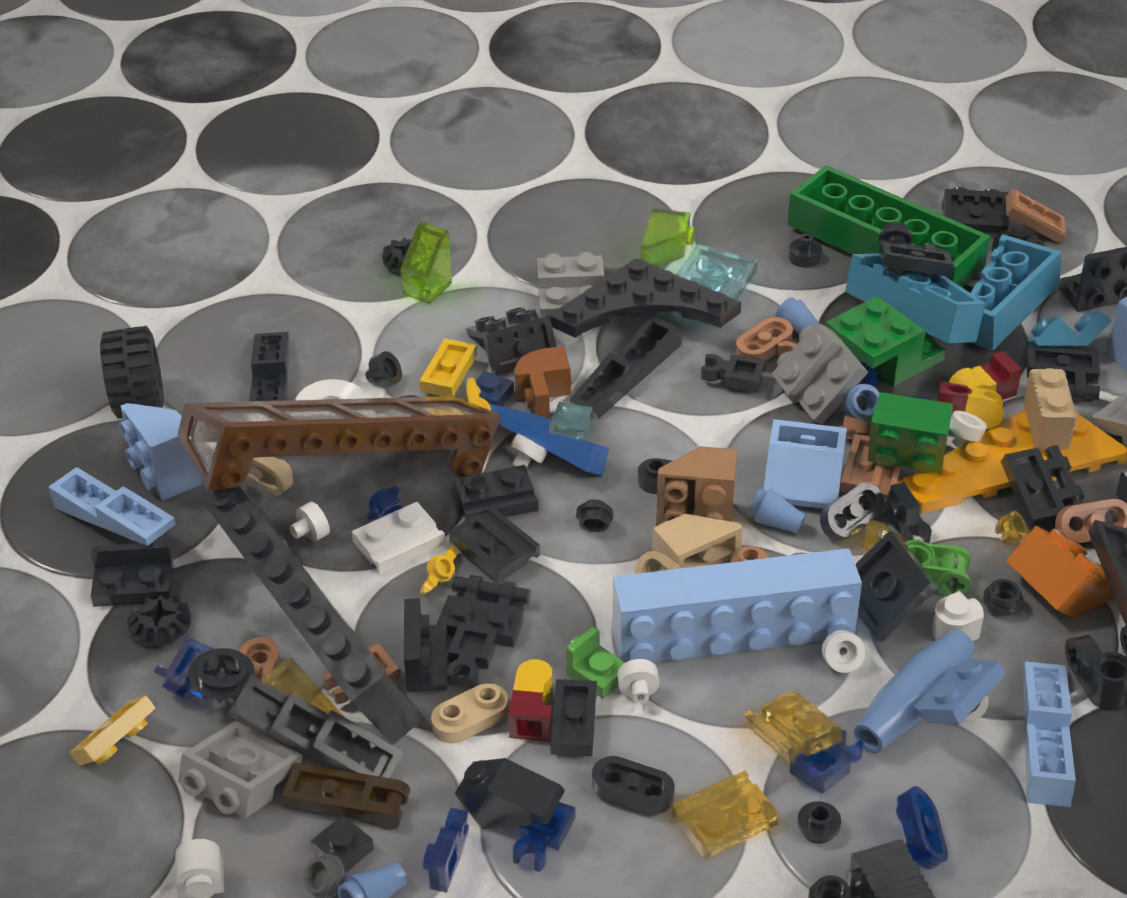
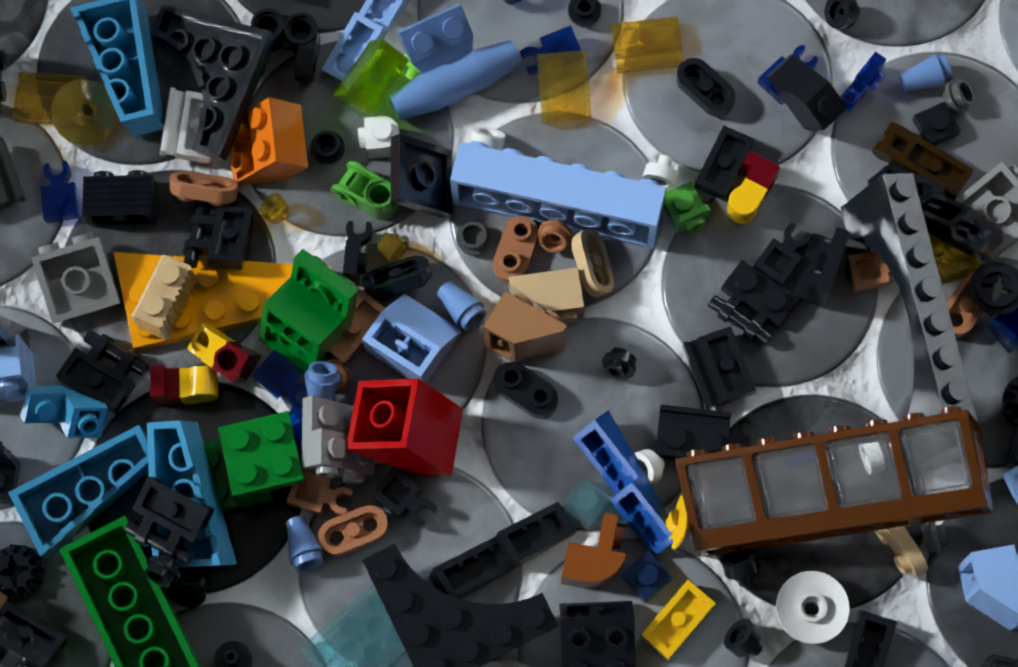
camera: 155 degrees left, 30 degrees up
(398, 537) = (797, 412): white plate -> none
(439, 569) = (774, 361): yellow piece -> none
(474, 713) = (803, 207): tan plate -> none
(761, 383) = (405, 426): none -> red slope
(966, 428) = (242, 324): white tile -> none
(1005, 638) = (371, 77): none -> clear neon green brick

